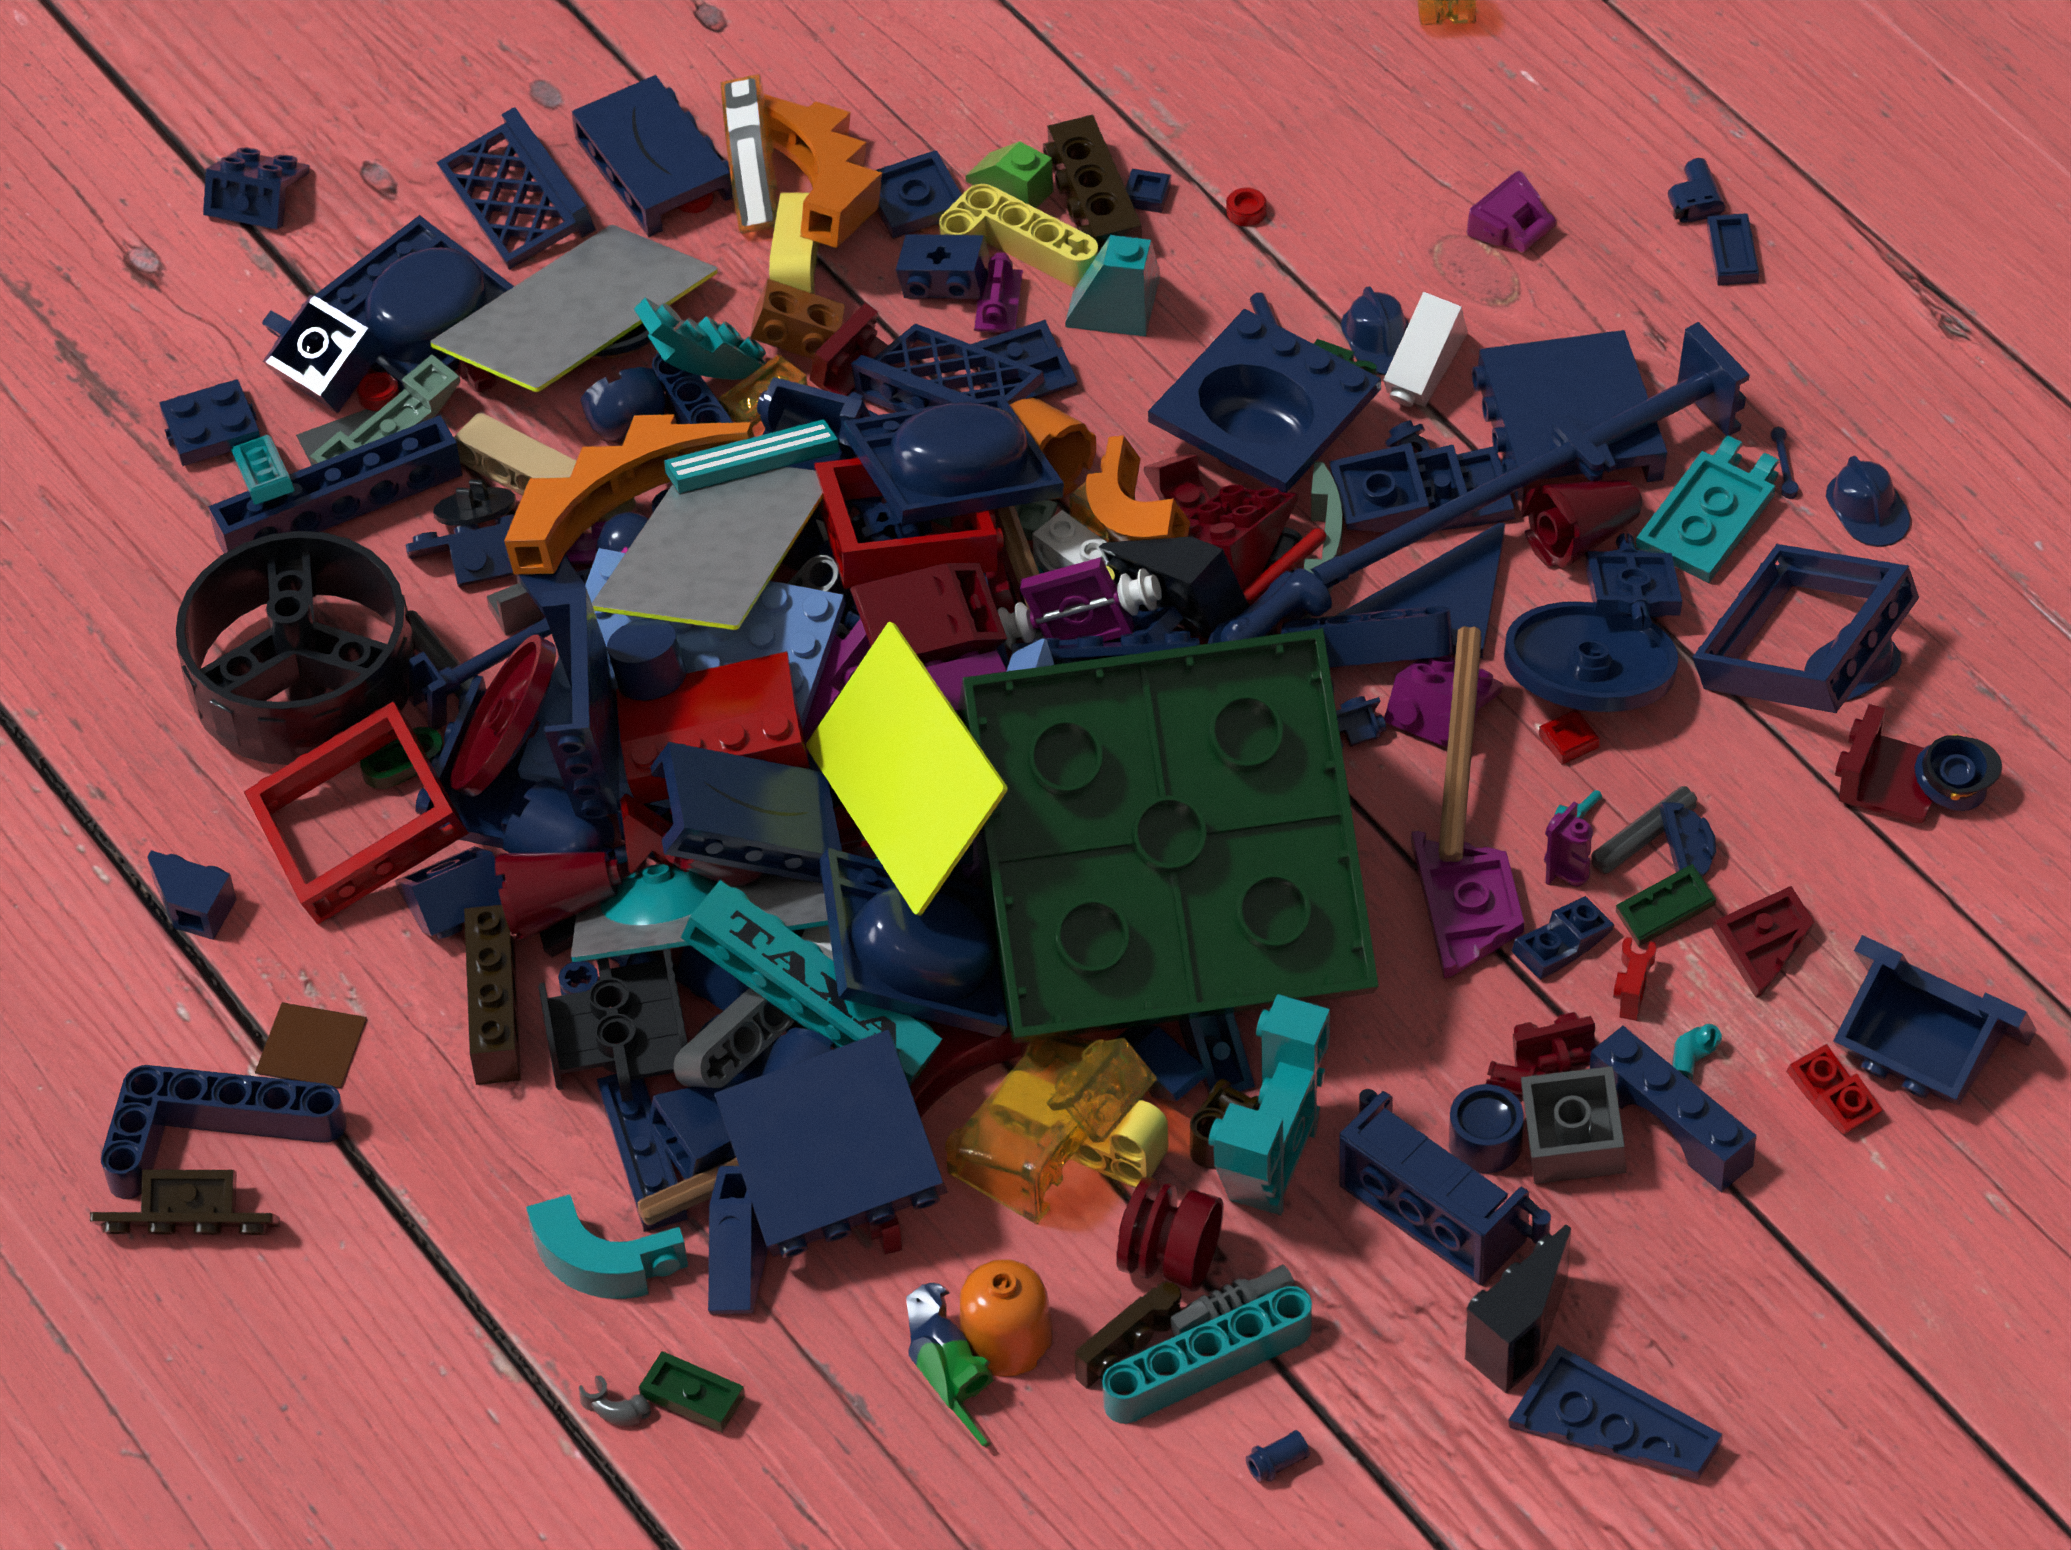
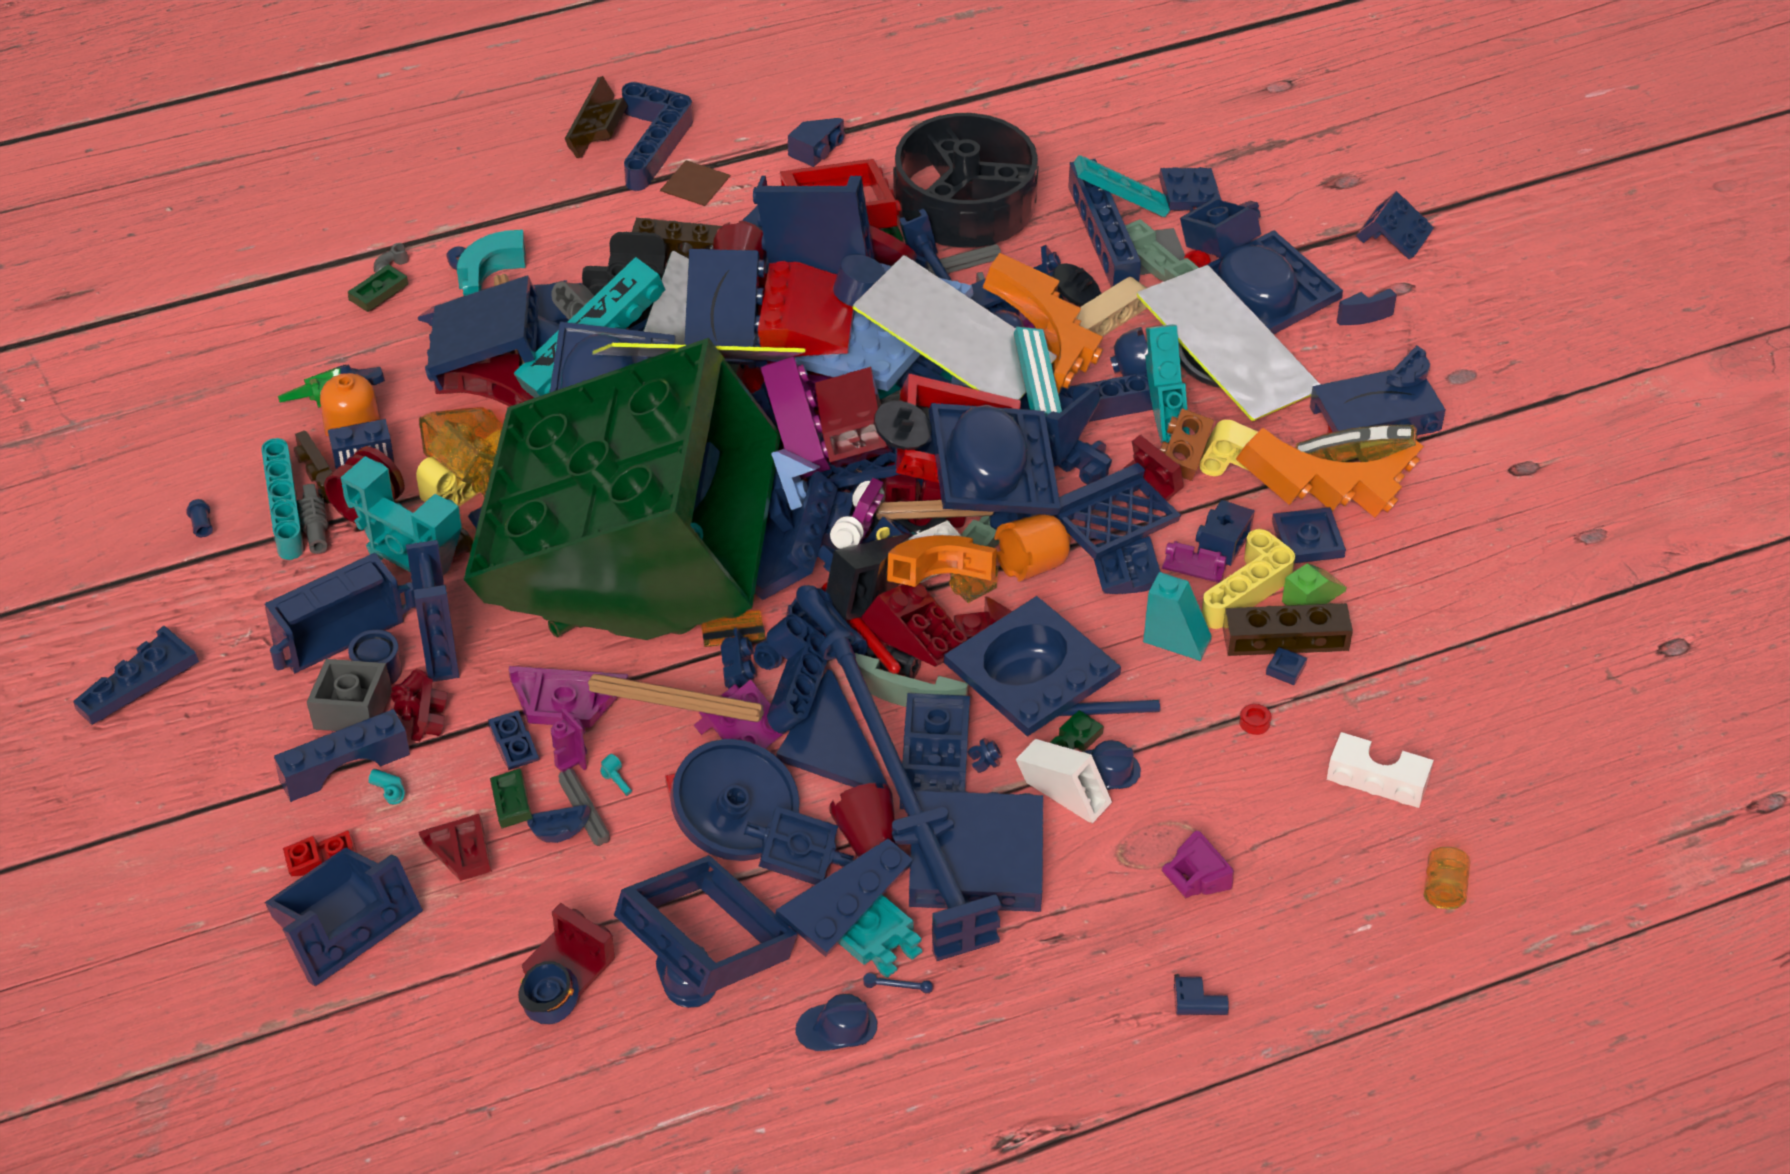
camera: 100 degrees right, 5 degrees down
(446, 188) = (1362, 310): none -> dark blue slope
(539, 166) = (1357, 356): dark blue fence -> none
(591, 1302) = (454, 253): none -> dark blue hinge
(596, 104) = (1410, 370): none -> dark blue plate
(742, 399) = (1132, 423): clear yellow plate -> none
(947, 540) = (902, 425): none -> black piece
(1073, 1284) = (348, 439): none -> dark blue brick
(1302, 56) = (1400, 782): none -> white arch
(1464, 1028) = (432, 610): none -> dark blue fence
(1514, 1317) = (221, 633): black slope -> none
(1632, 984) = (452, 763): red plate -> none
(1700, 499) = (841, 900): none -> dark blue wing
(1732, 249) = (1131, 1009): dark blue tile -> none

